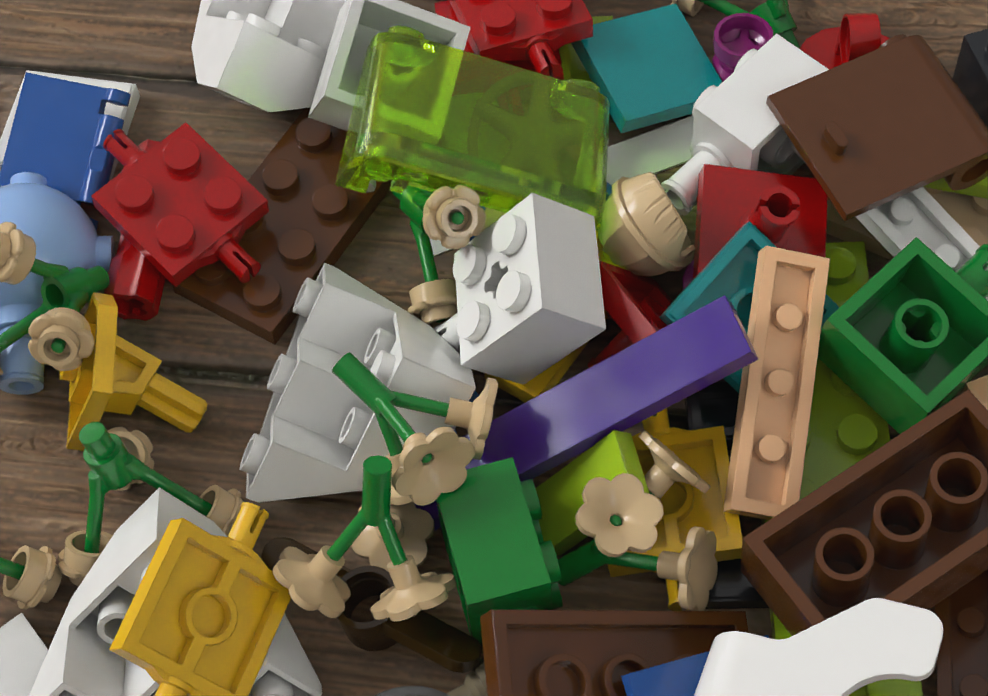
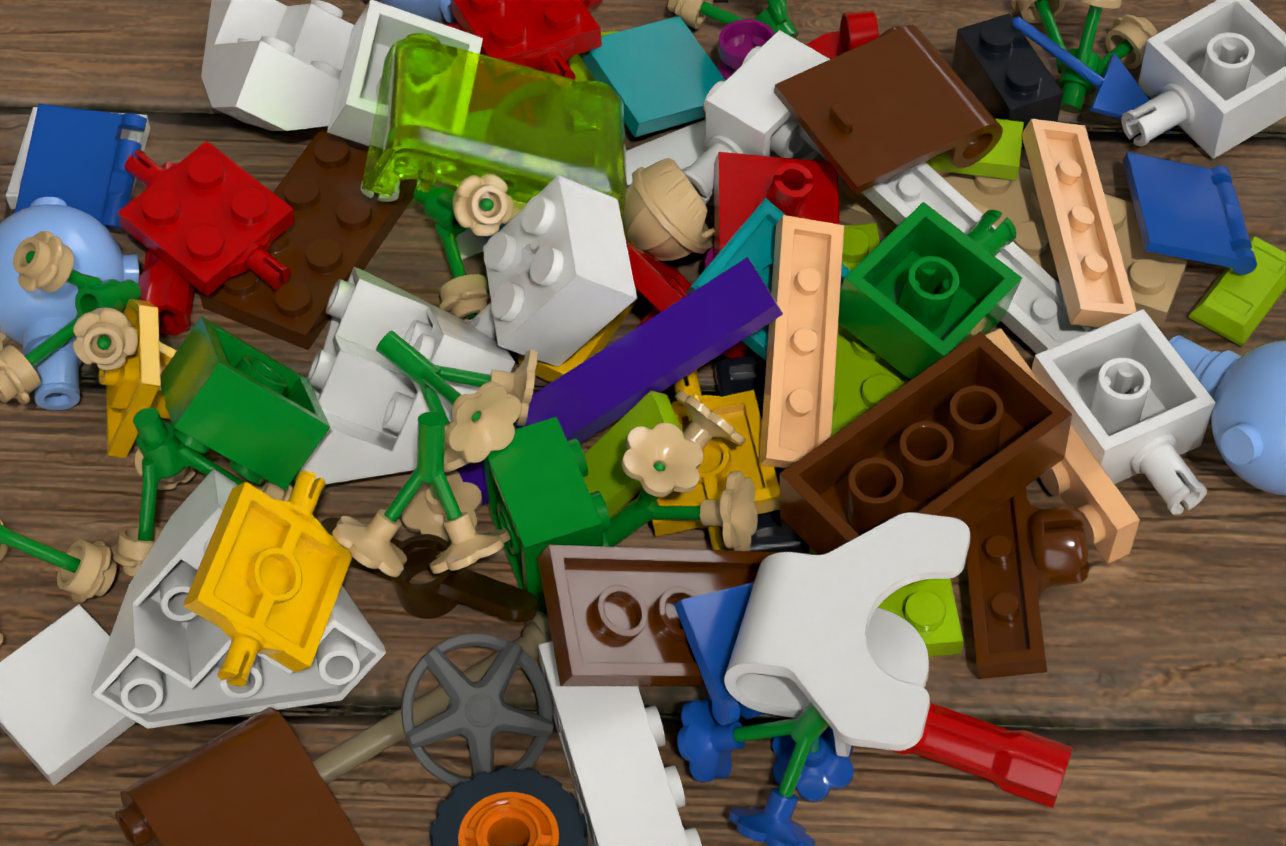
camera: 10 degrees left, 5 degrees down
(194, 418) = (242, 405): none -> green brick

